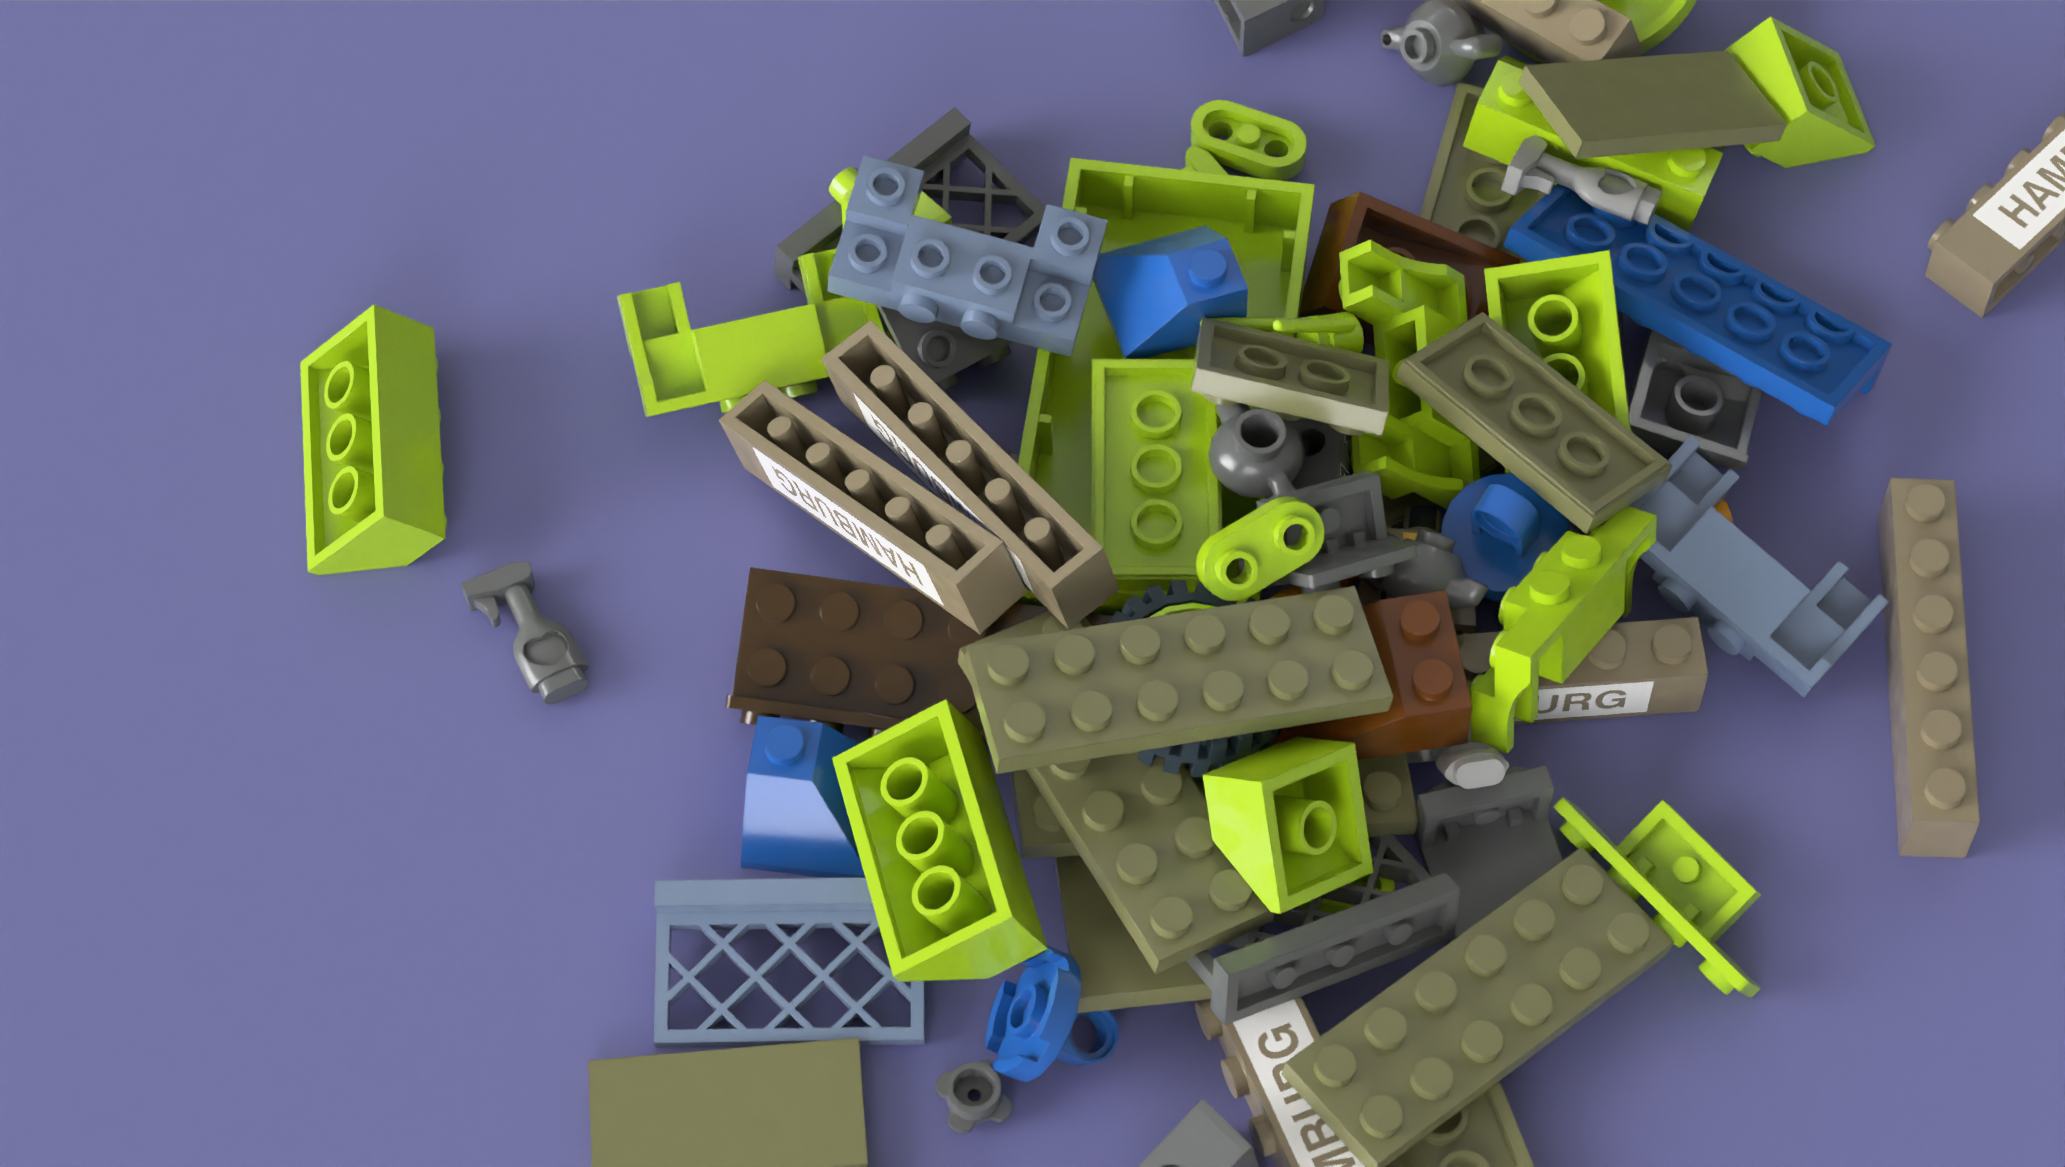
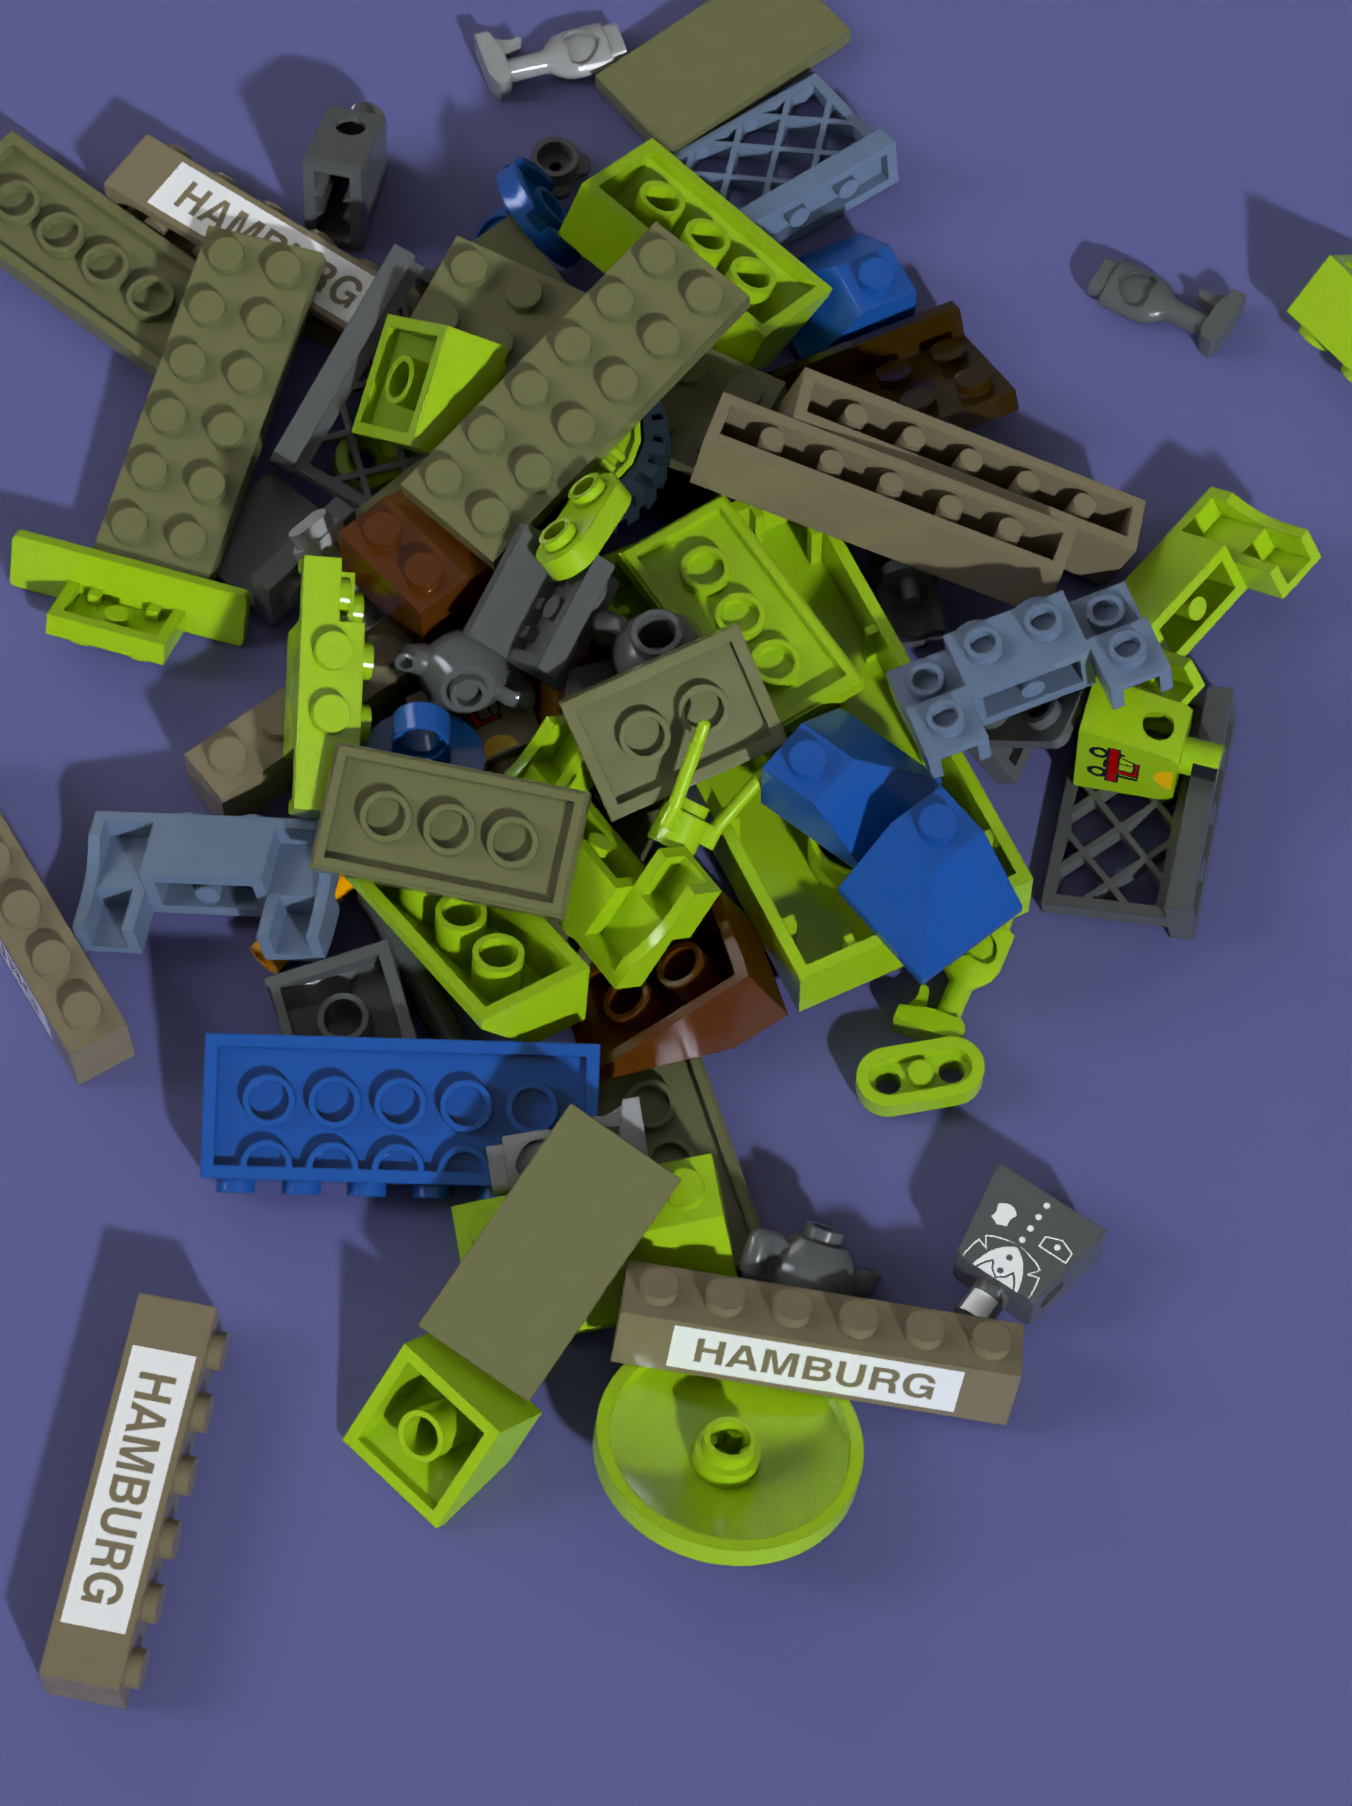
camera: 145 degrees right, 5 degrees up
(1166, 180) = (931, 886): none -> blue slope

